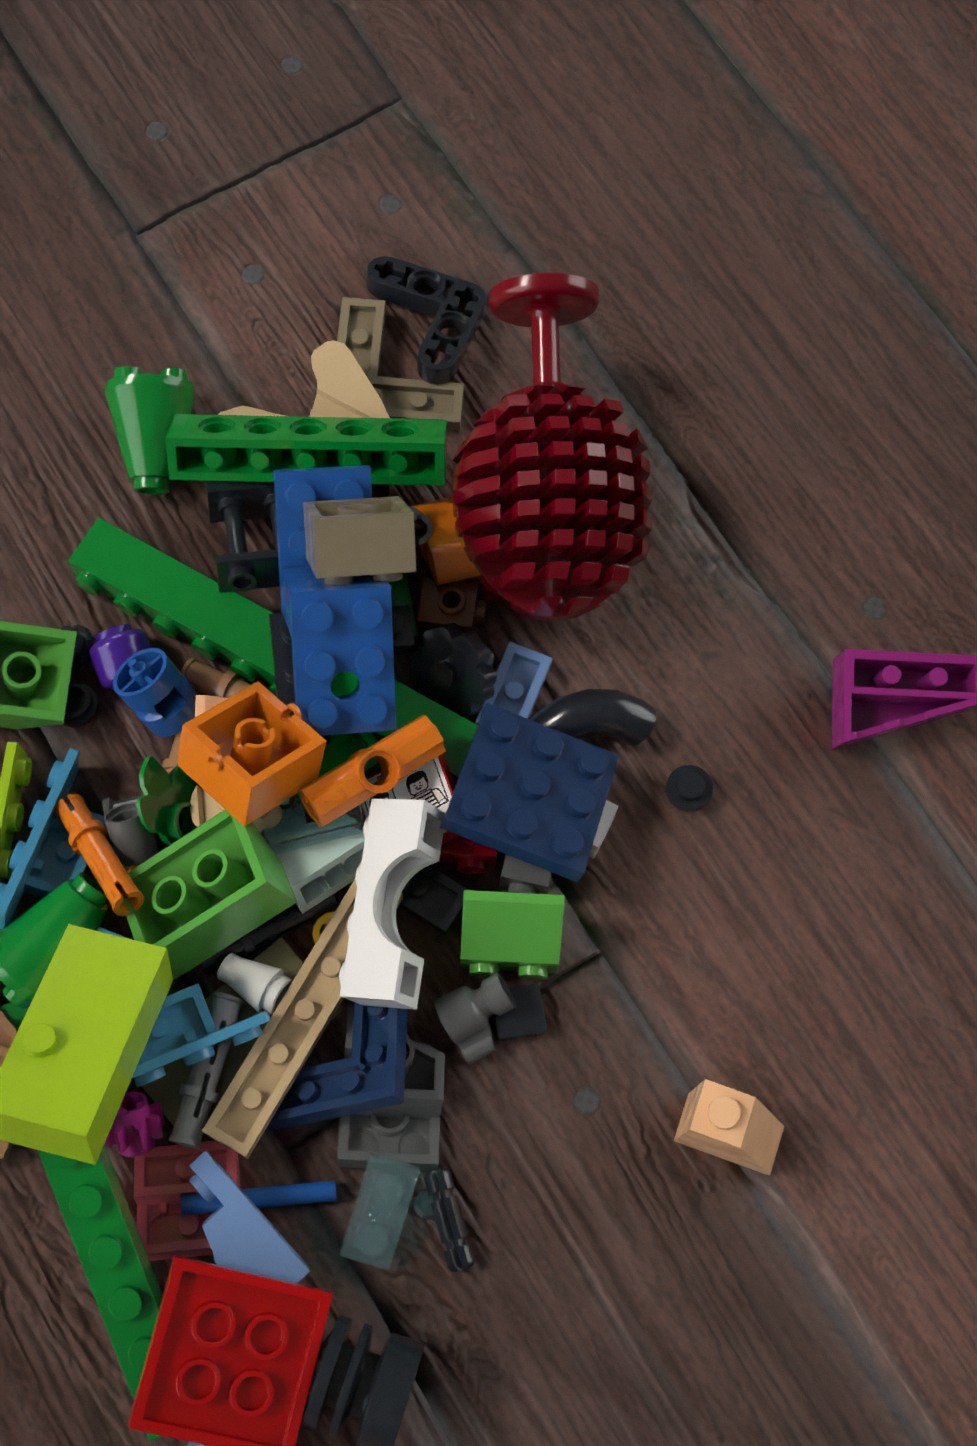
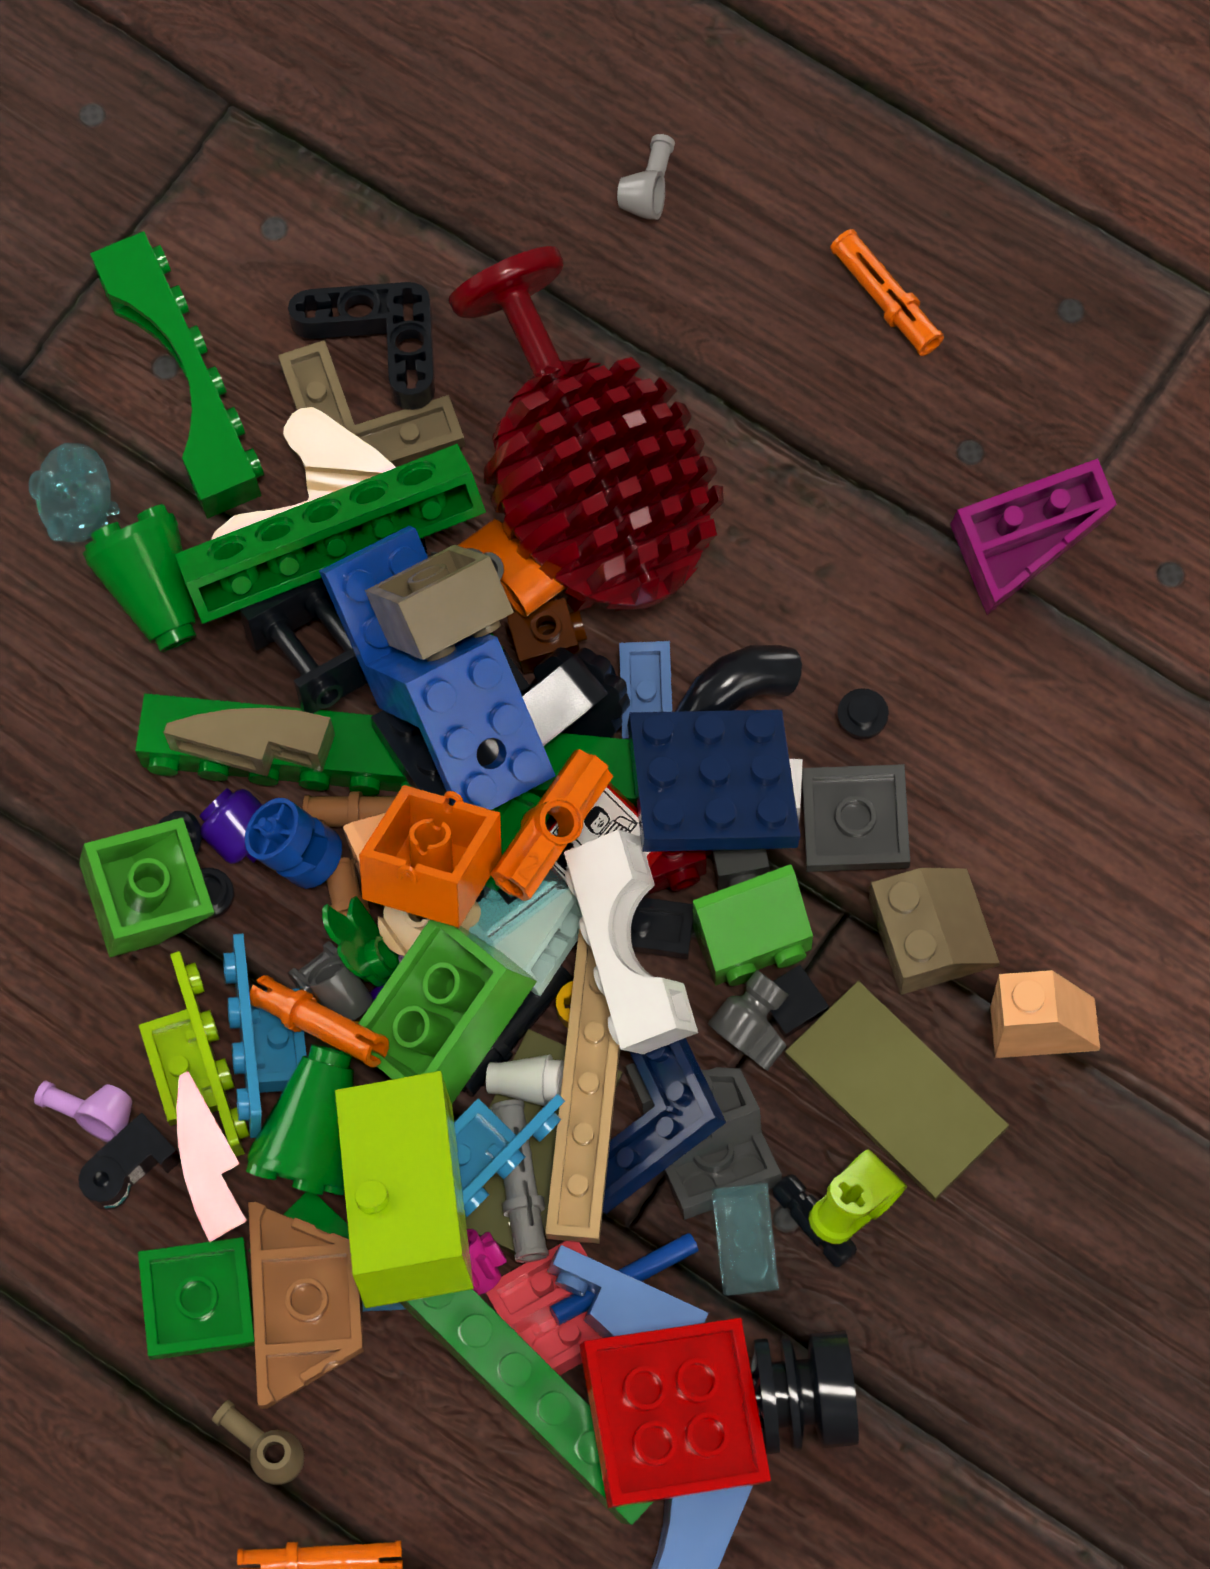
camera: 15 degrees left, 0 degrees up
(126, 335) = (72, 492): none -> clear light blue plate
(165, 590) = (254, 737): none -> dark tan slope
(253, 352) = (213, 455): none -> green arch
(422, 668) = (555, 703): none -> beam
(491, 1218) = (855, 1198): none -> lime piece
(574, 1134) = (896, 1090): none -> olive tile
(643, 875) = (855, 818): none -> dark grey plate
(668, 1000) = (931, 927): none -> dark tan slope
(697, 289) = (645, 191): none -> light grey bar
(866, 464) = (899, 307): none -> orange pin

